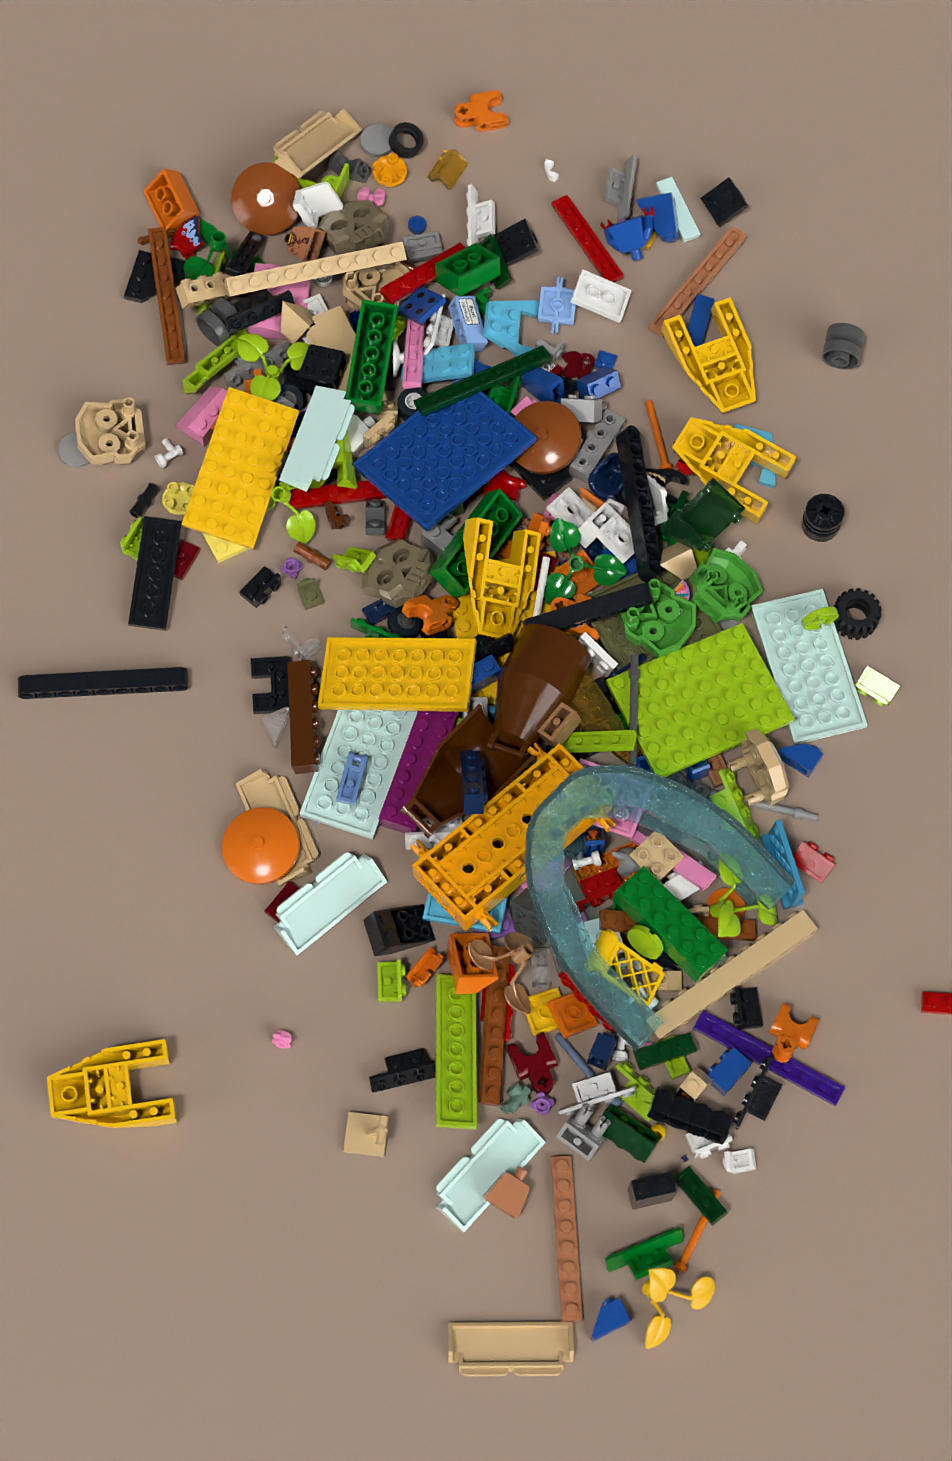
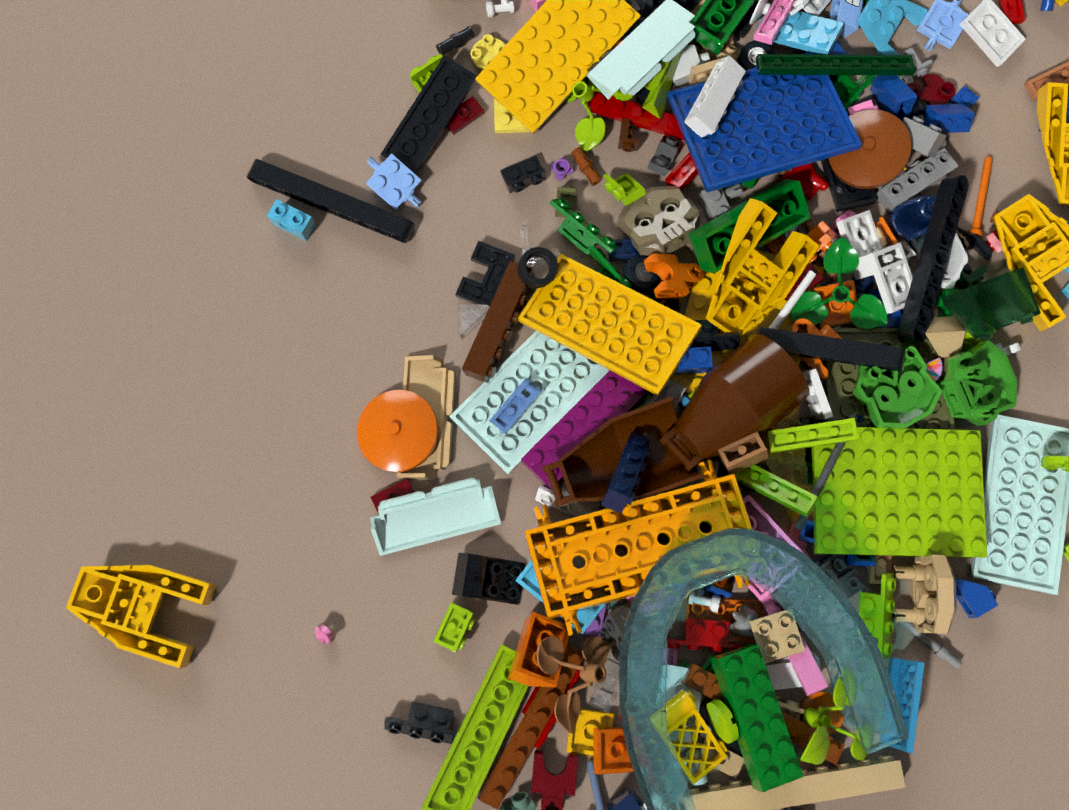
camera: 30 degrees right, 10 degrees up
(77, 714) = (291, 220): none -> medium azure brick
(151, 642) = (394, 182): none -> light blue plate
(308, 667) = (550, 259): none -> black tyre
(335, 612) = (580, 231): none -> green bracket
(366, 1134) = (357, 770): tan plate -> none
(395, 450) = (715, 97): none -> white brick
(420, 972) = (484, 633): orange hinge -> none
(608, 685) = (813, 435): none -> lime plate
(813, 861) = (934, 711): bracket -> none

